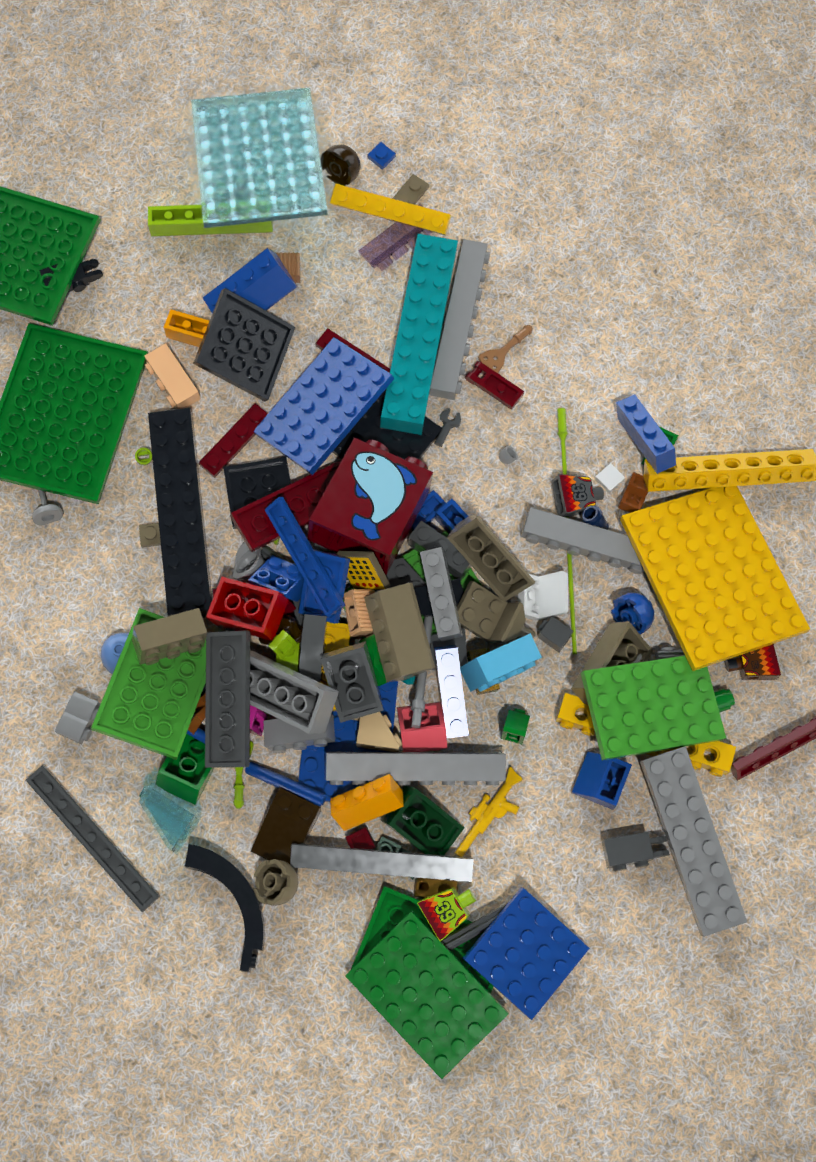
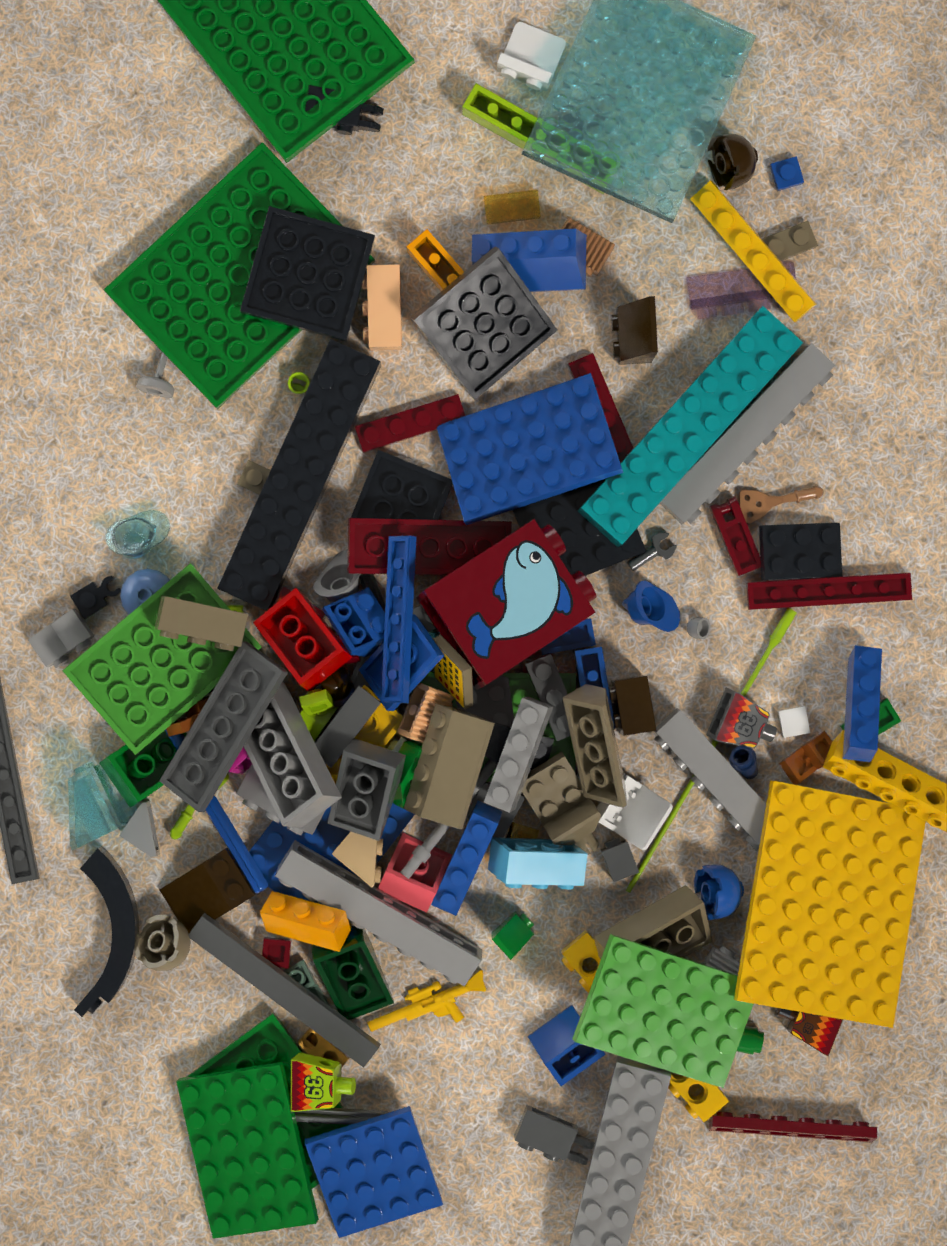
camera: 30 degrees right, 15 degrees up
(85, 680) = (92, 598): none -> black plate
(90, 617) = (138, 534): none -> clear light blue piece
(107, 382) = (307, 273): none -> black plate
(174, 177) = (531, 56): none -> white bracket
(212, 815) = (141, 830): none -> light grey slope
(218, 271) = (512, 207): none -> clear yellow plate
(347, 294) = (635, 332): none -> dark brown slope
(467, 459) = (652, 607): none -> blue piece
(500, 522) = (632, 705): none -> dark brown brick
(541, 369) = (800, 551): none -> black plate
(576, 383) = (829, 591): none -> dark red plate

